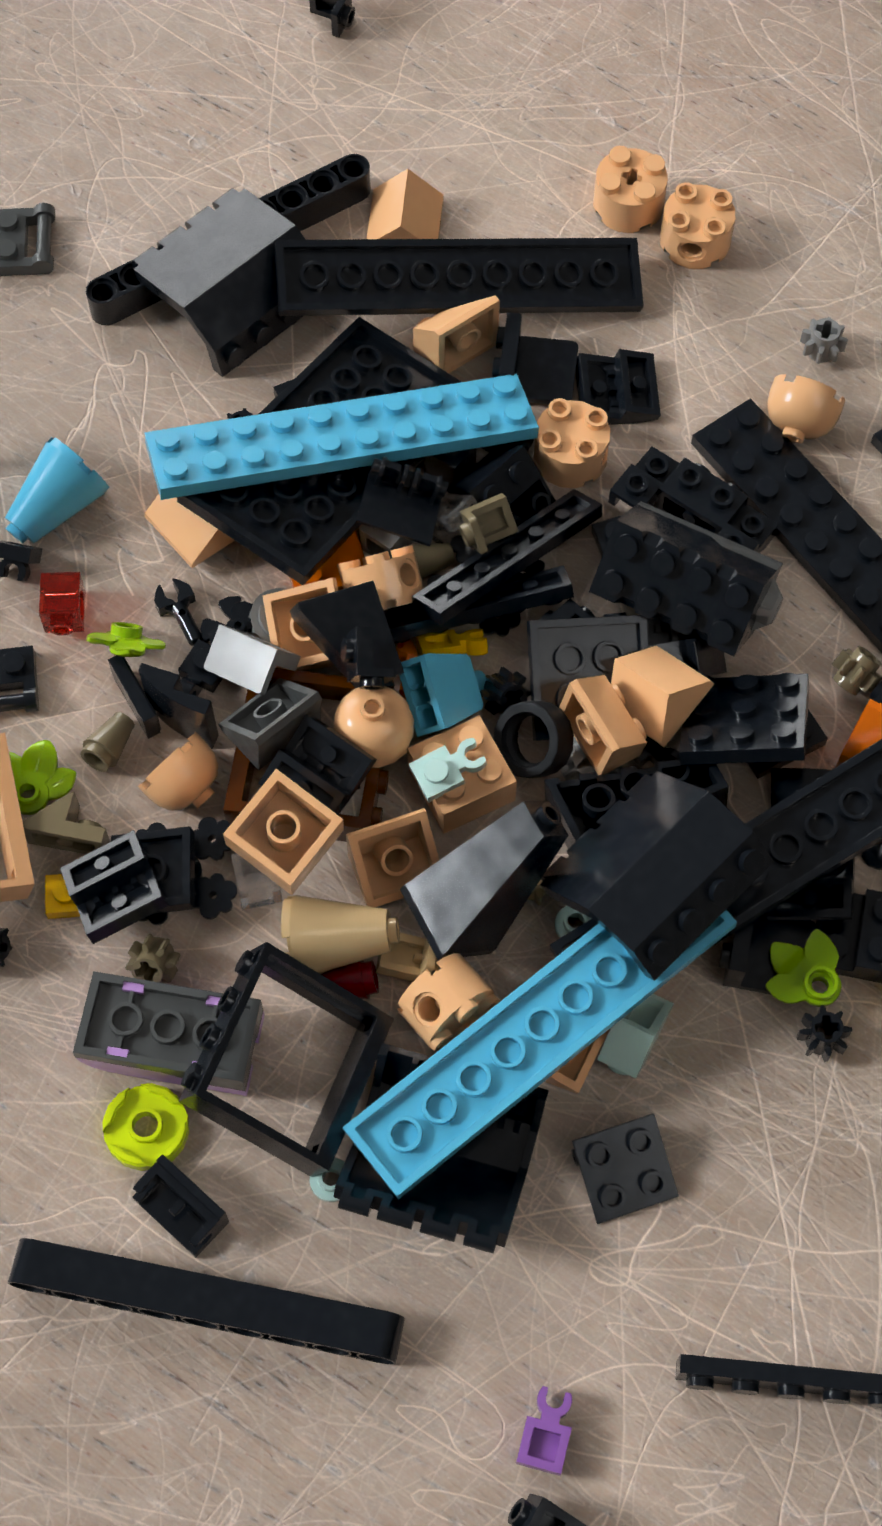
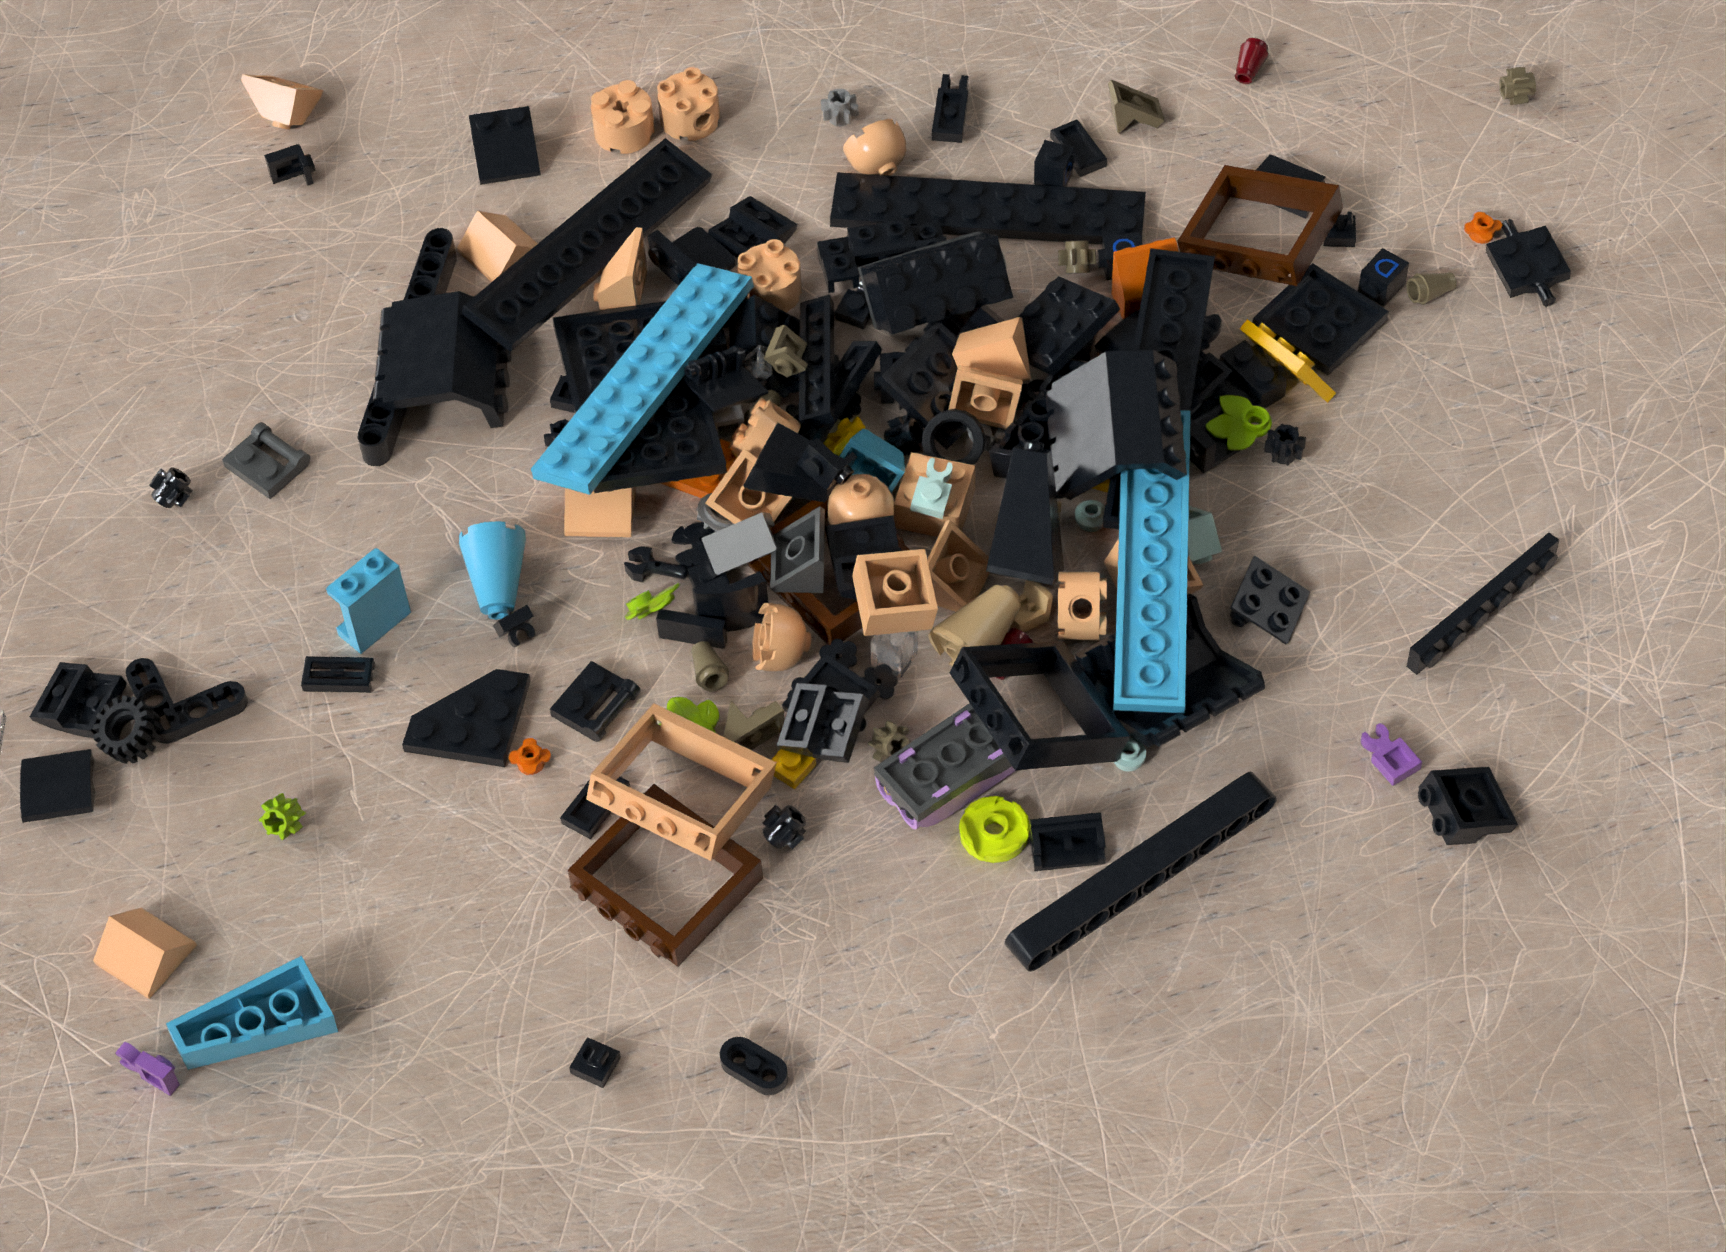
camera: 45 degrees left, 10 degrees down
(62, 602) = (579, 621): clear red brick -> none
(510, 131) = (504, 145): none -> black slope

